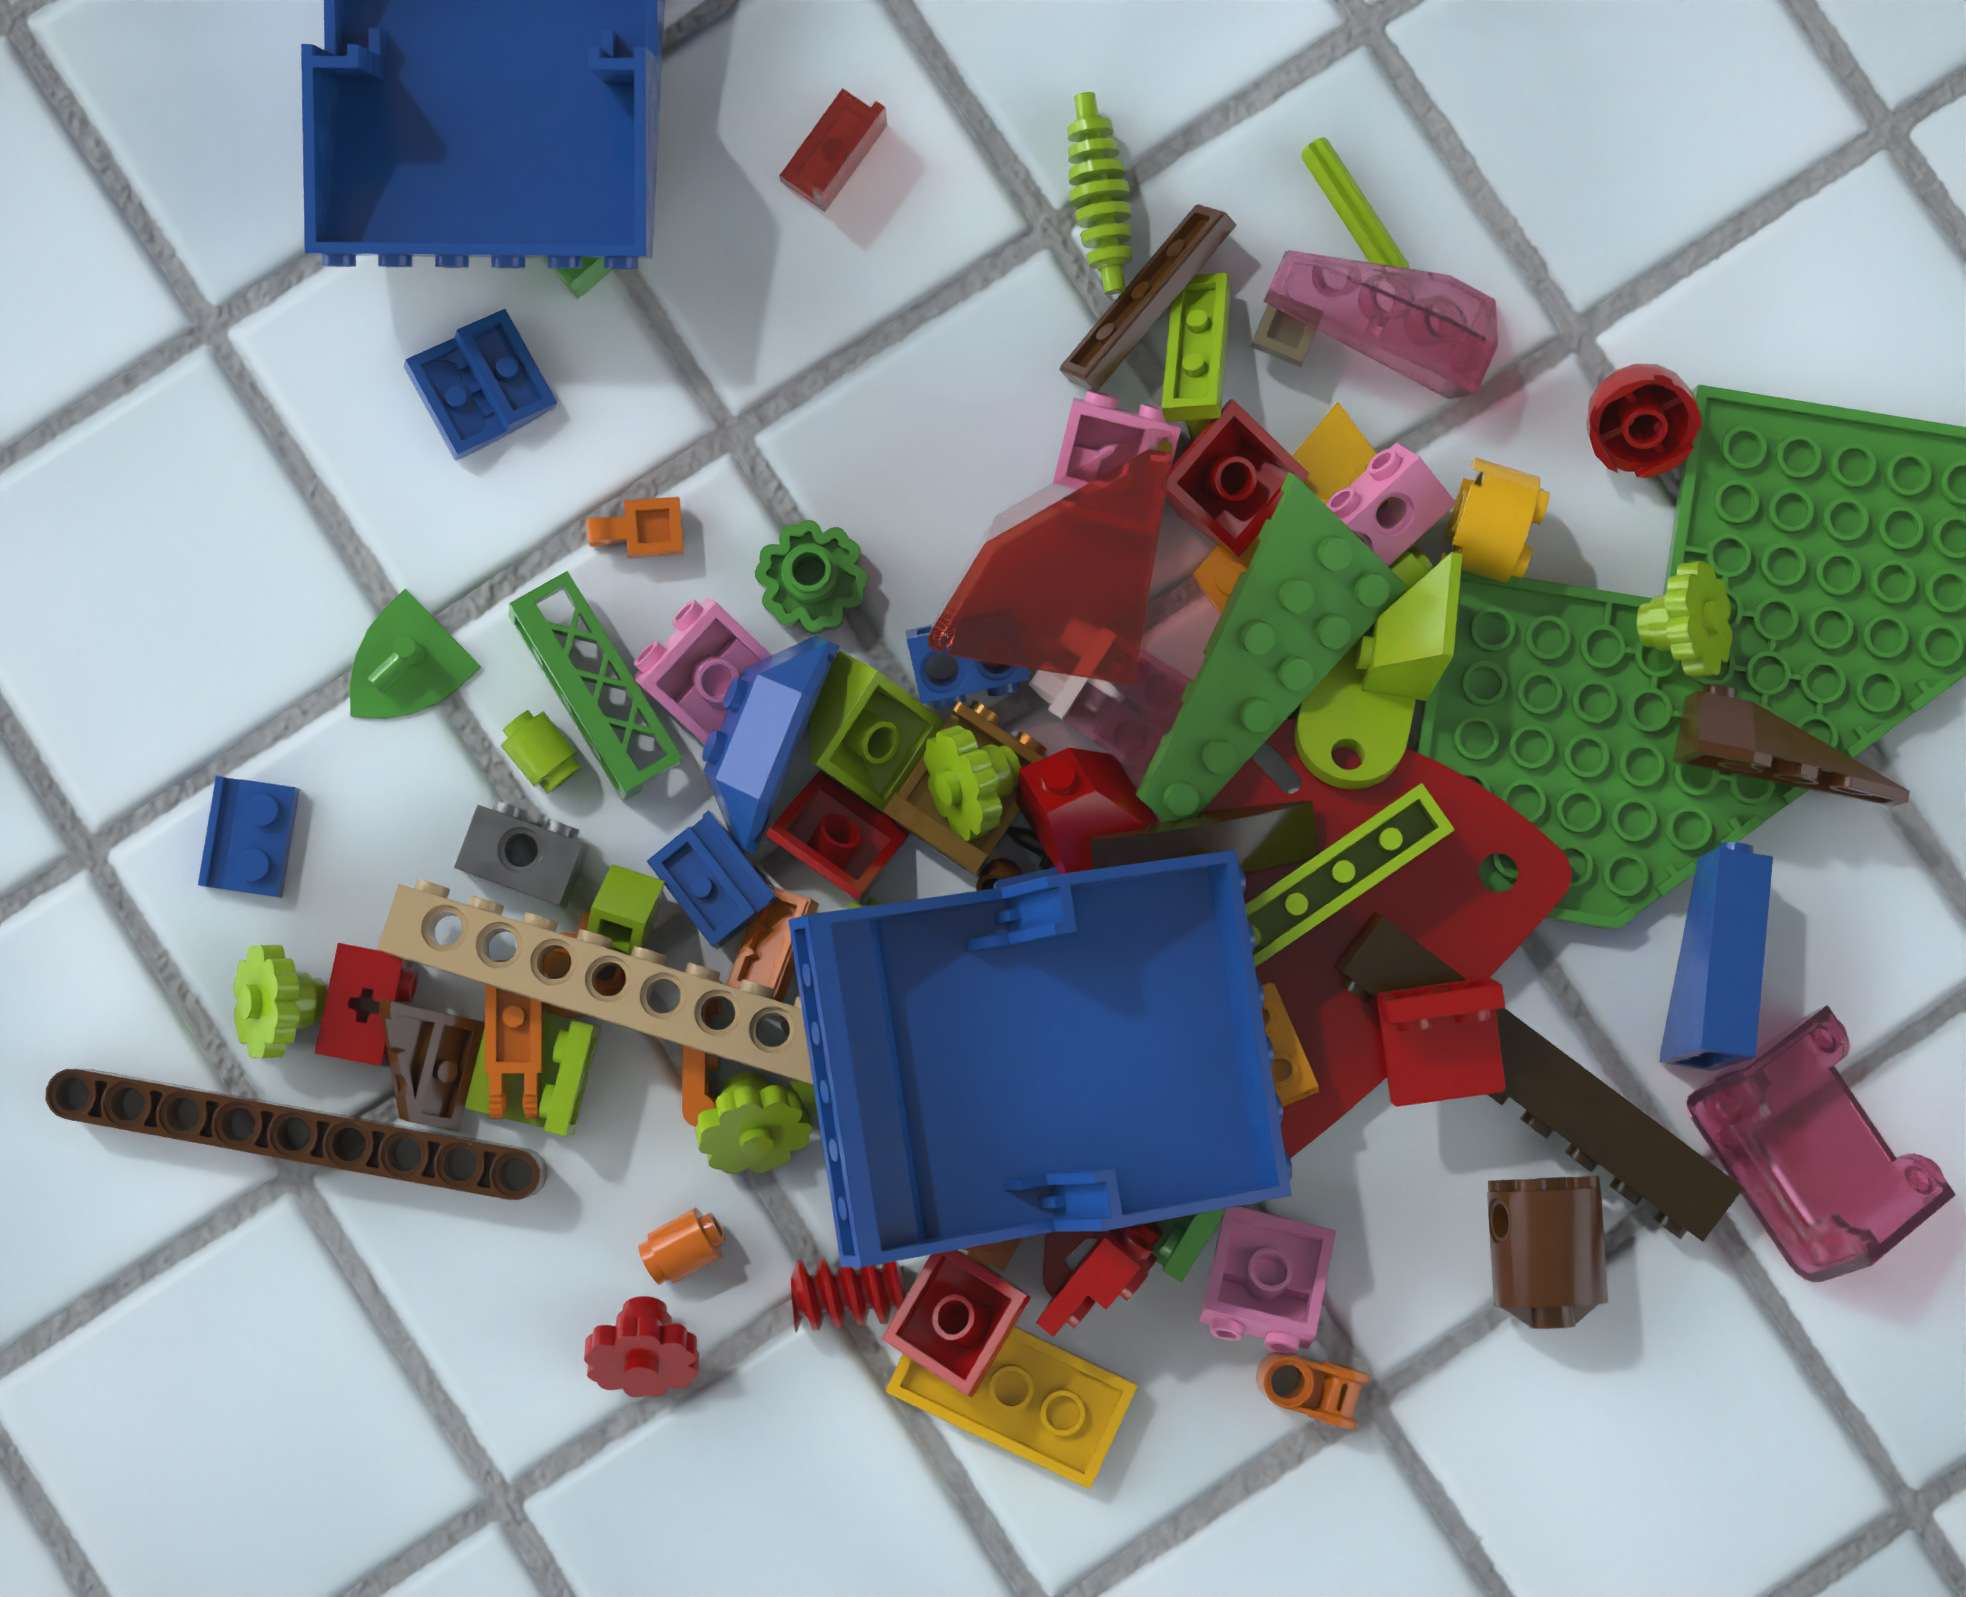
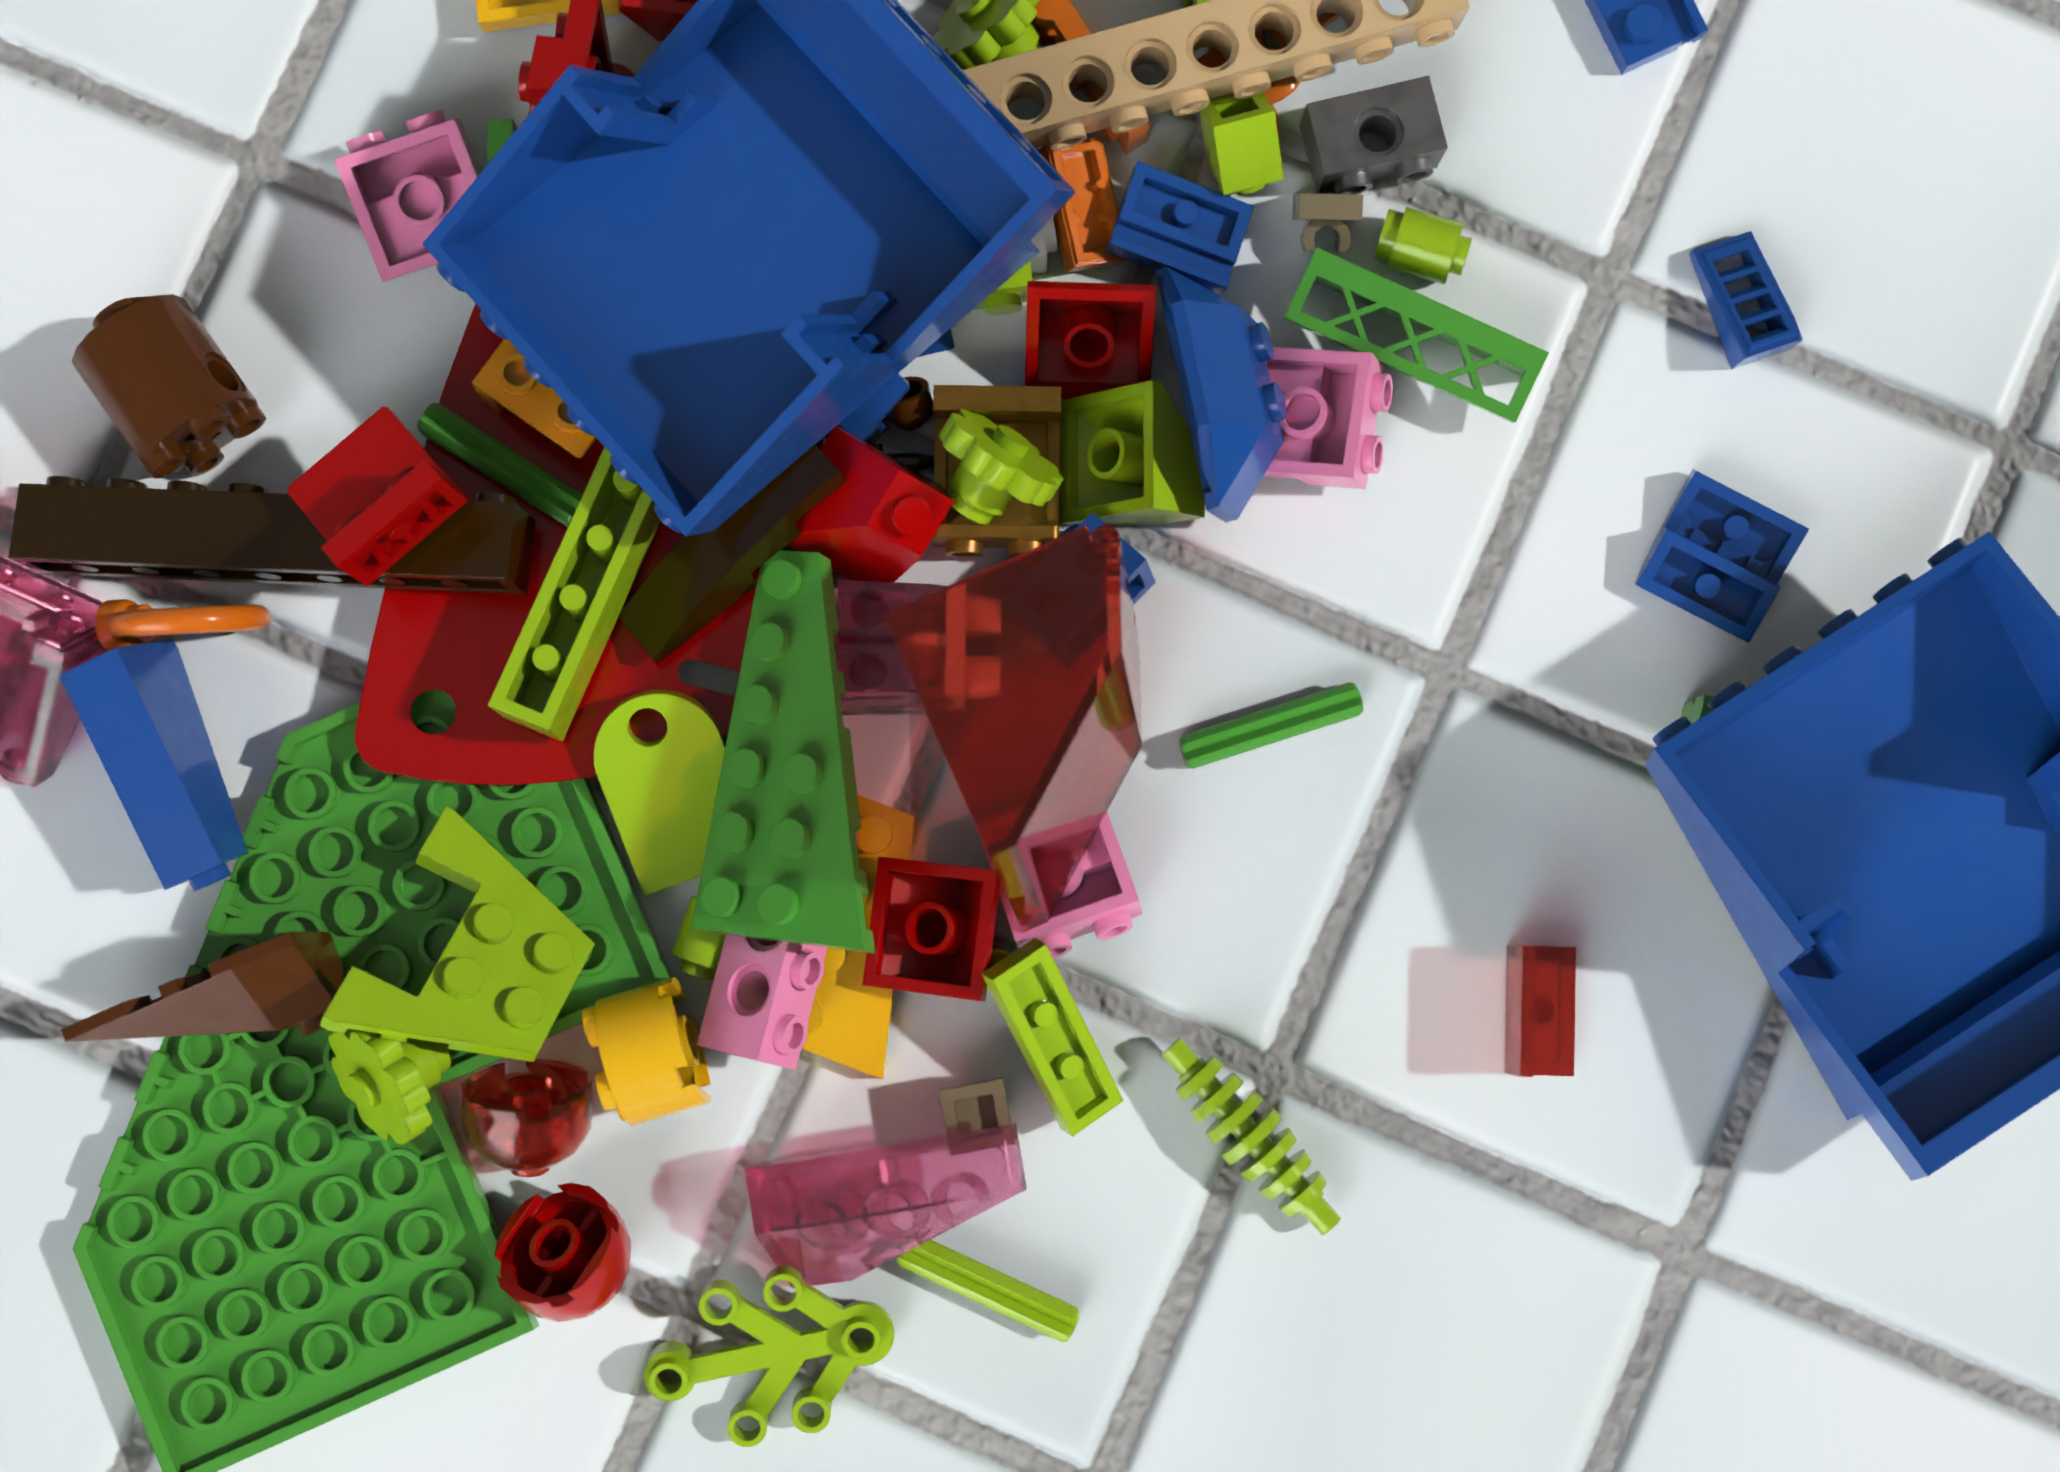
camera: 145 degrees right, 0 degrees up
(356, 543) = (1774, 309): none -> blue slope
(406, 663) = (1604, 252): bright green shield -> none
(597, 825) = (1327, 211): none -> dark tan tile
(649, 528) = (1469, 519): orange plate -> none
(811, 577) = (1279, 574): bright green plant -> none
(890, 473) = (1271, 725): none -> bright green axle
(1147, 297) = (1135, 1061): reddish brown tile -> none
(1323, 1388) = (303, 128): orange piece -> none
(1332, 1024) = (499, 463): none -> bright green axle
(1414, 636) = (650, 883): lime slope -> none
(1532, 261) = (778, 1349): none -> lime plant
(1564, 642) = (497, 975): none -> lime wing
(1607, 535) = (527, 1117): none -> clear red cylinder
(1678, 1073) = (127, 624): none -> orange piece

